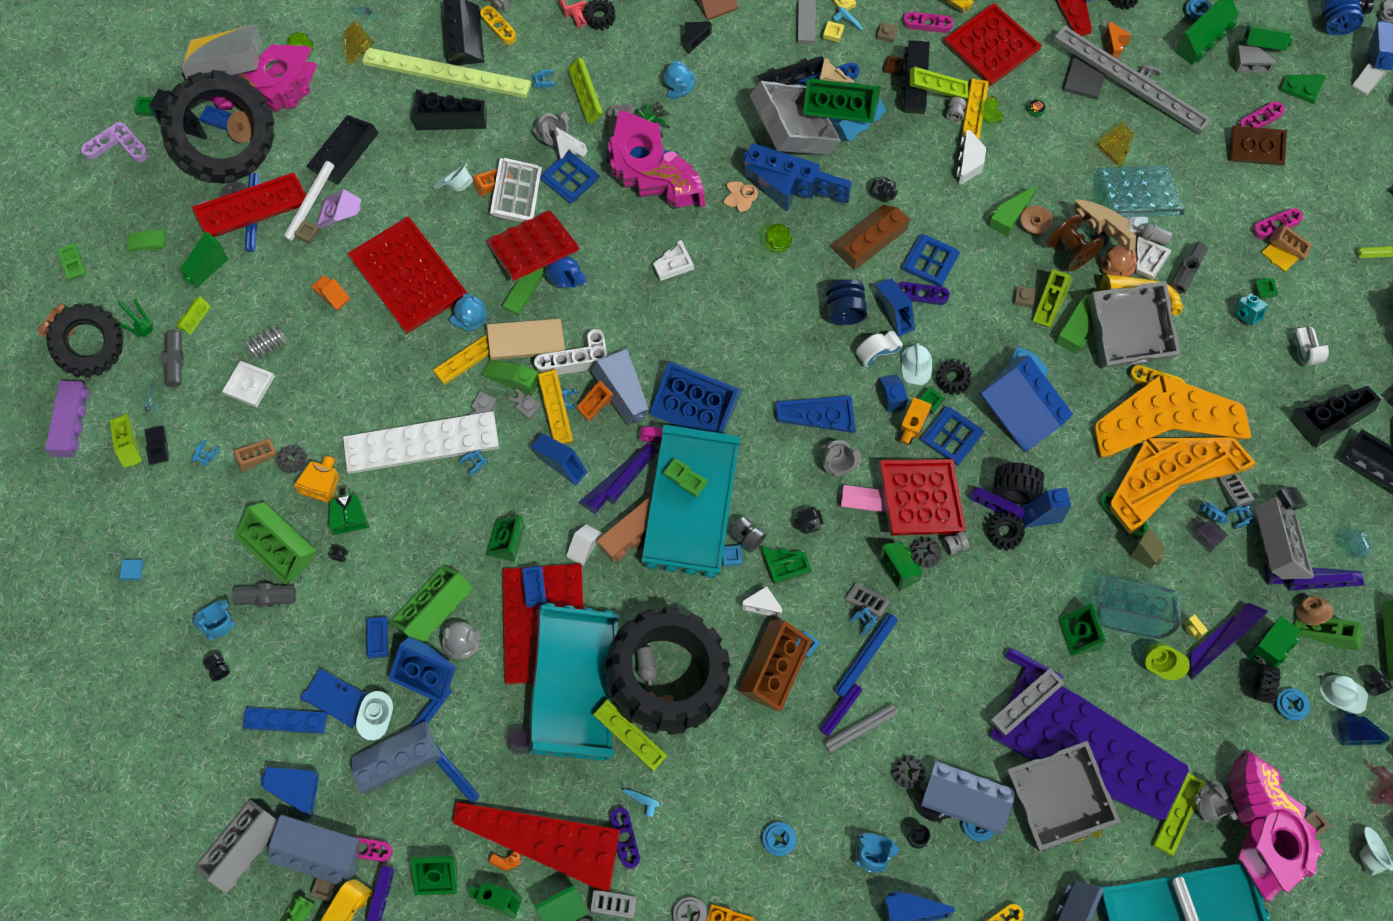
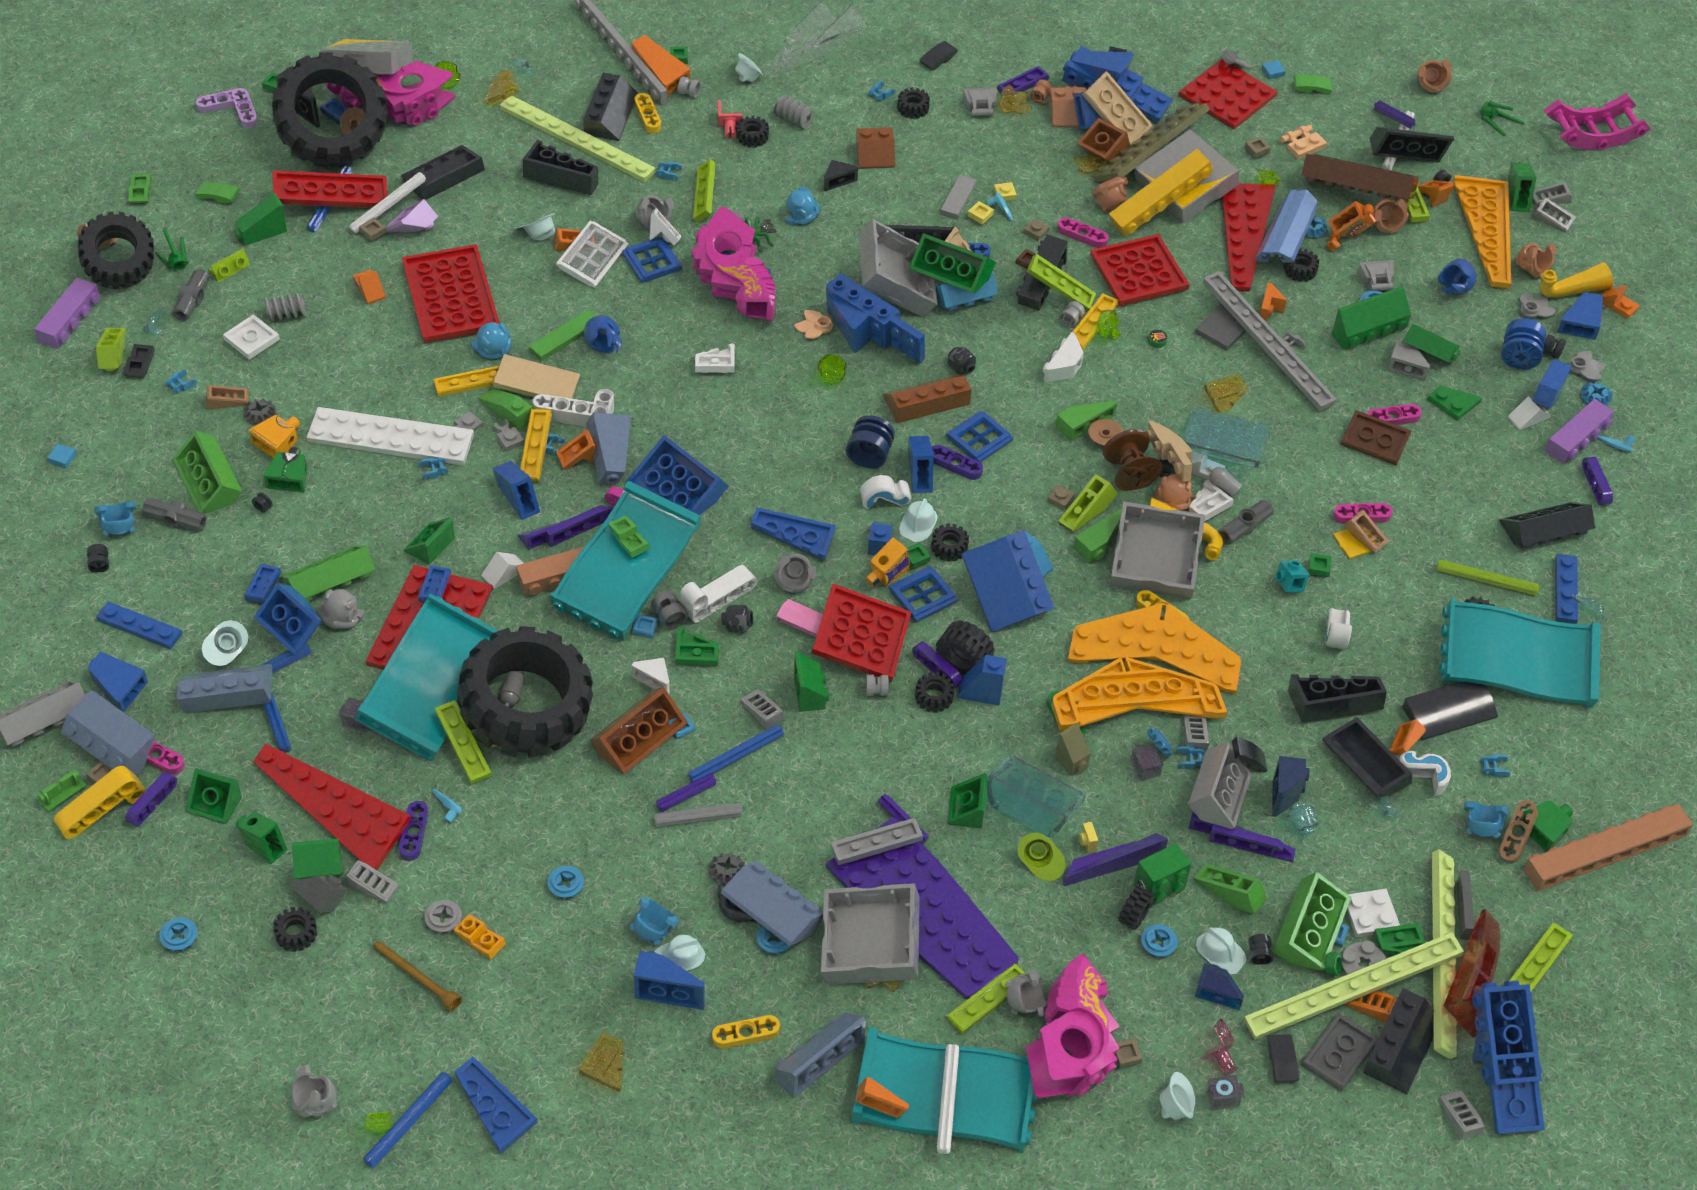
camera: 15 degrees right, 15 degrees down
(338, 702) = (192, 621): blue door -> none
(506, 863) = (284, 813): orange arm -> none
(532, 245) = (582, 300): red plate -> none
(772, 514) = (704, 601): none -> white beam
(860, 614) = (752, 725): dark azure piece -> none
(906, 873) = (683, 951): none -> light aqua piece
(918, 832) = (706, 924): black wheel -> none
(931, 559) = (843, 693): dark grey gear -> none
(1314, 611) = (1223, 861): medium nougat piece -> none
(1335, 516) = (1288, 783): none -> dark blue slope

